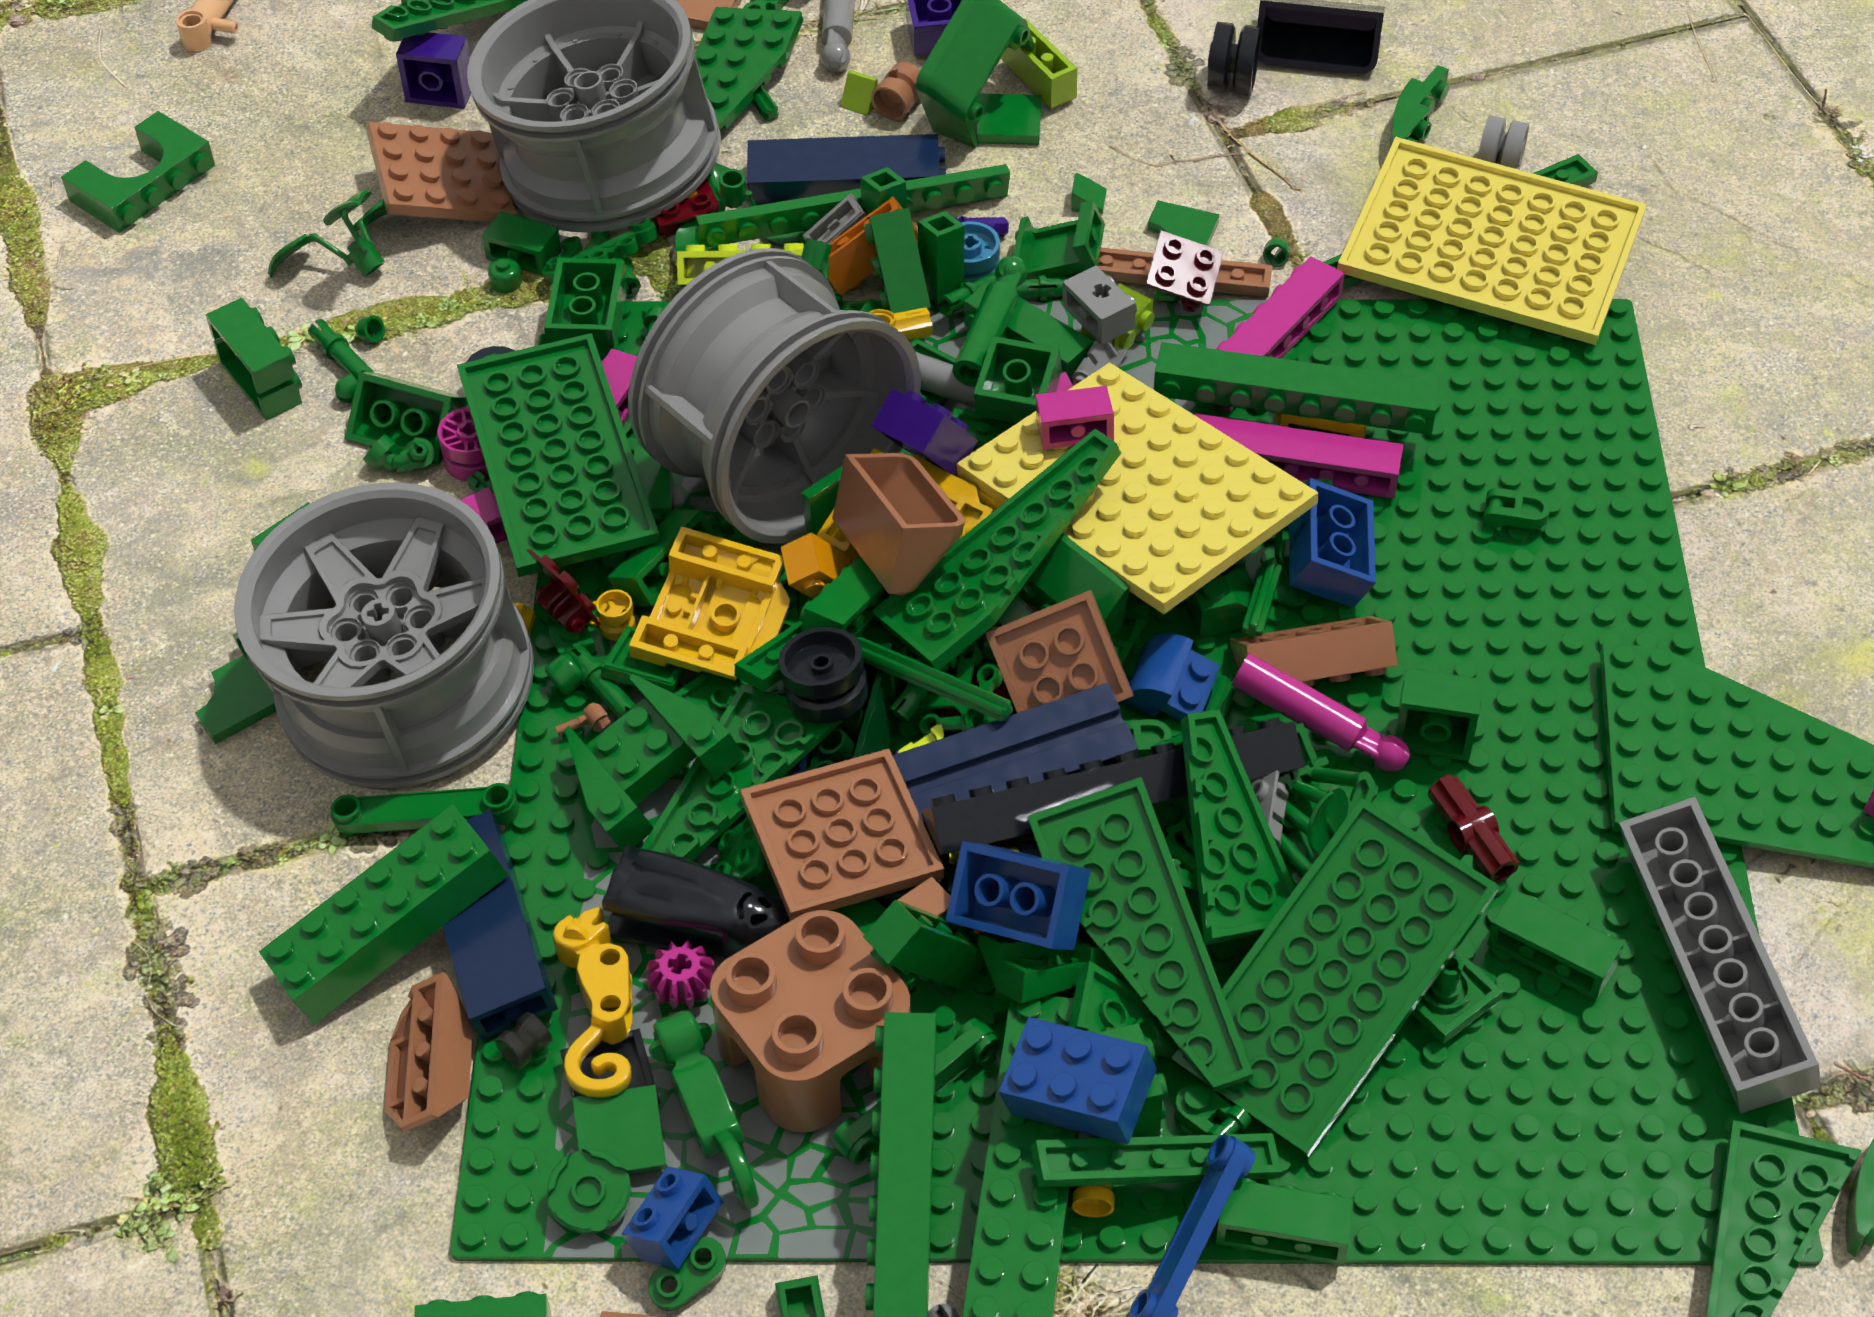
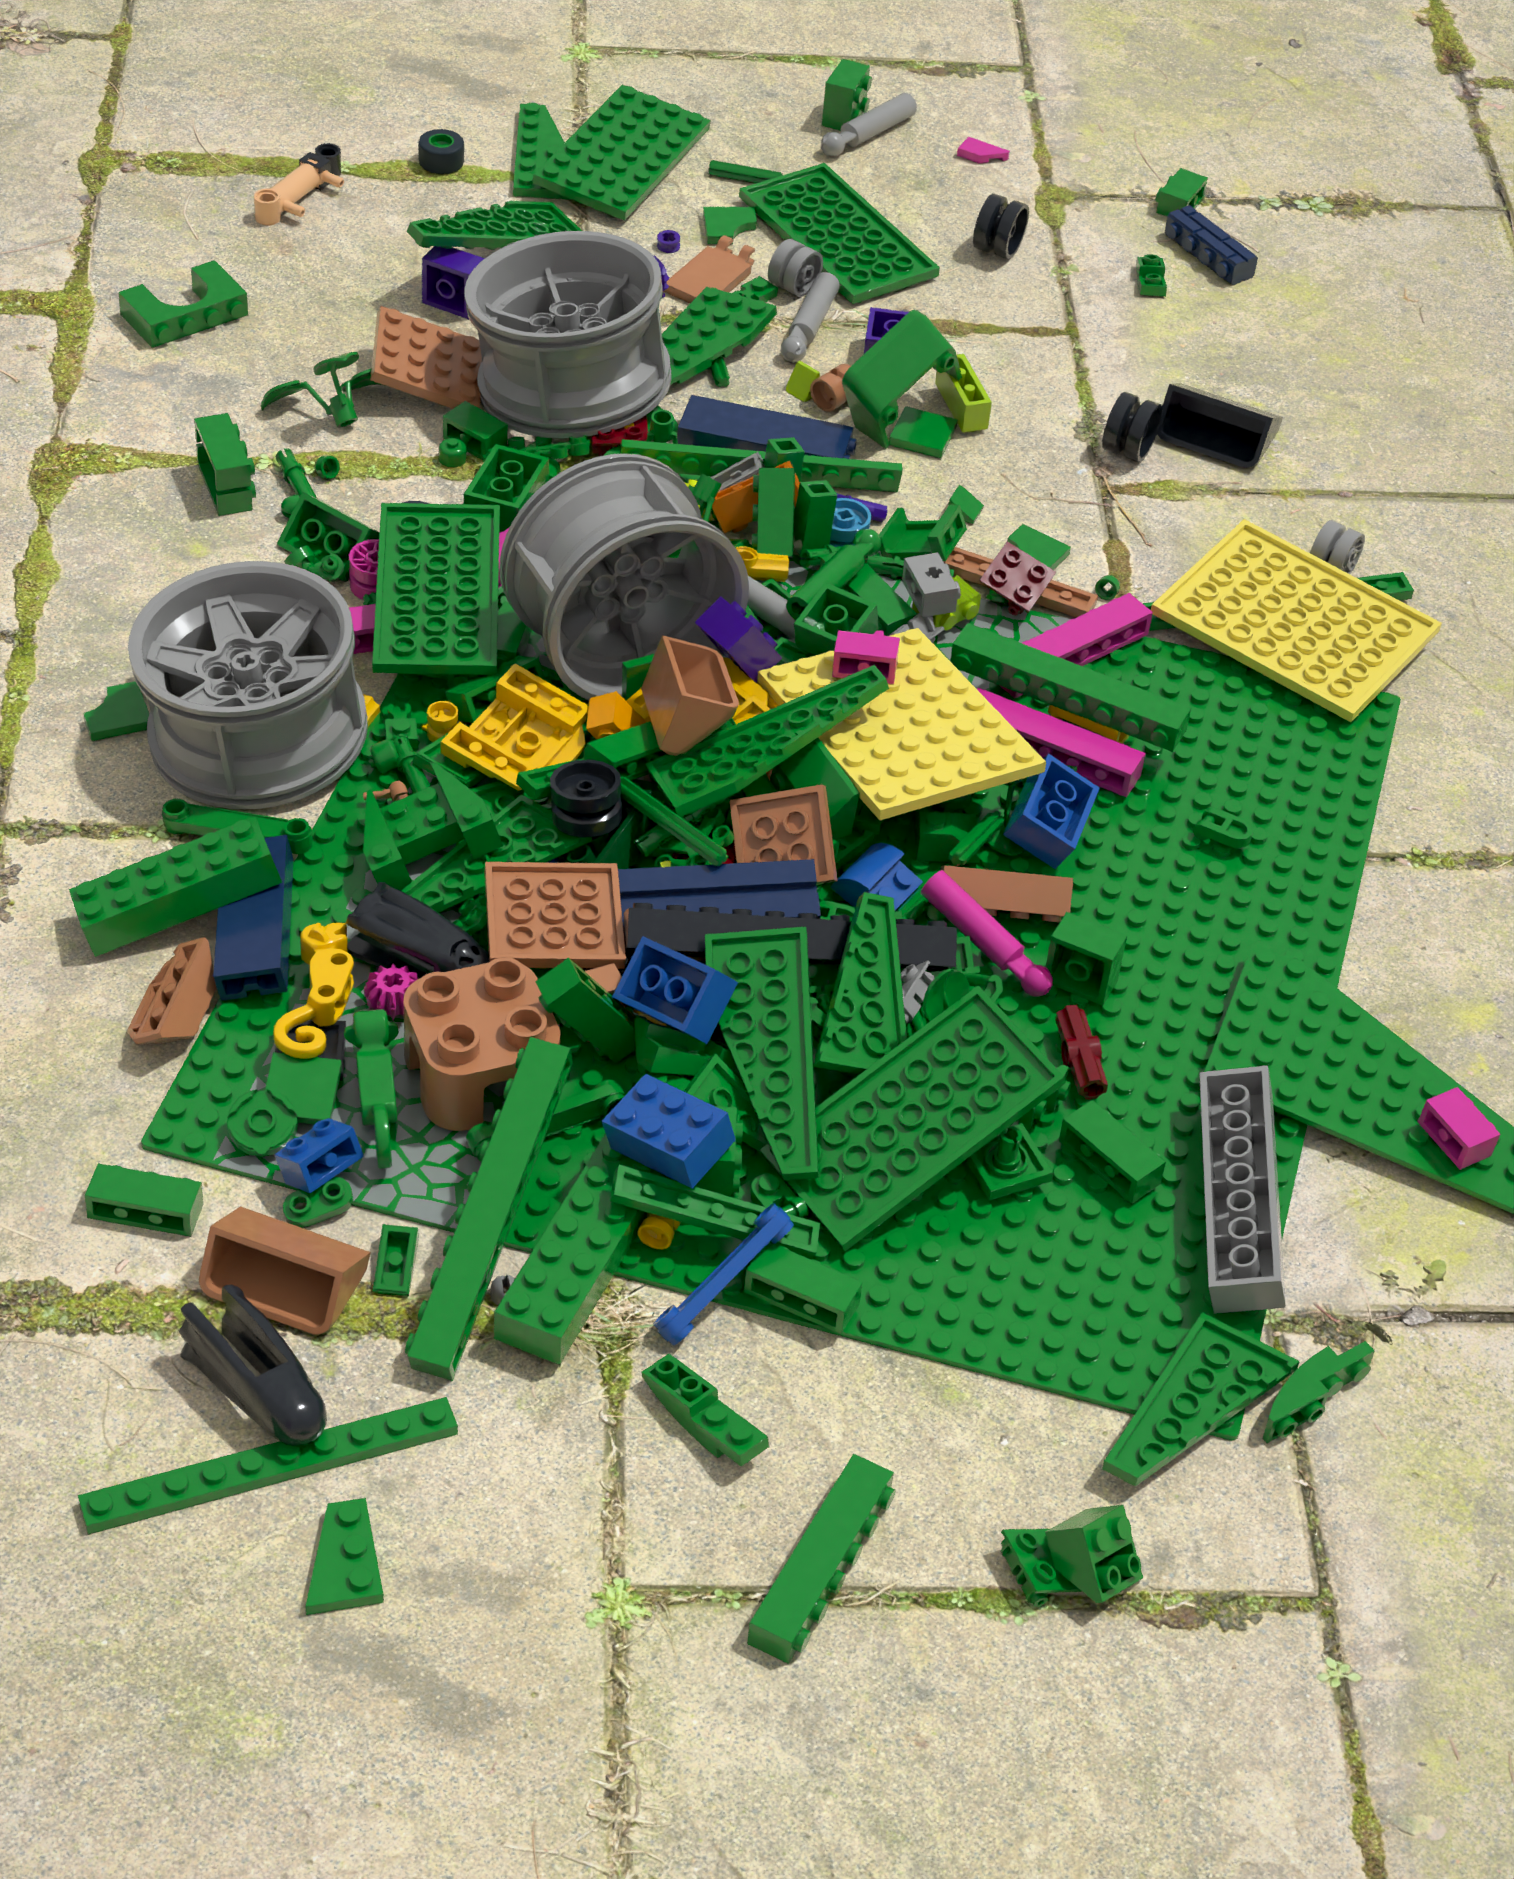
camera: 10 degrees right, 5 degrees down
(526, 1038) = (252, 1005): clear smoke wheel -> none
(561, 597) = (401, 696): dark red hinge -> none
(1417, 105) = (1279, 500): green slope -> none

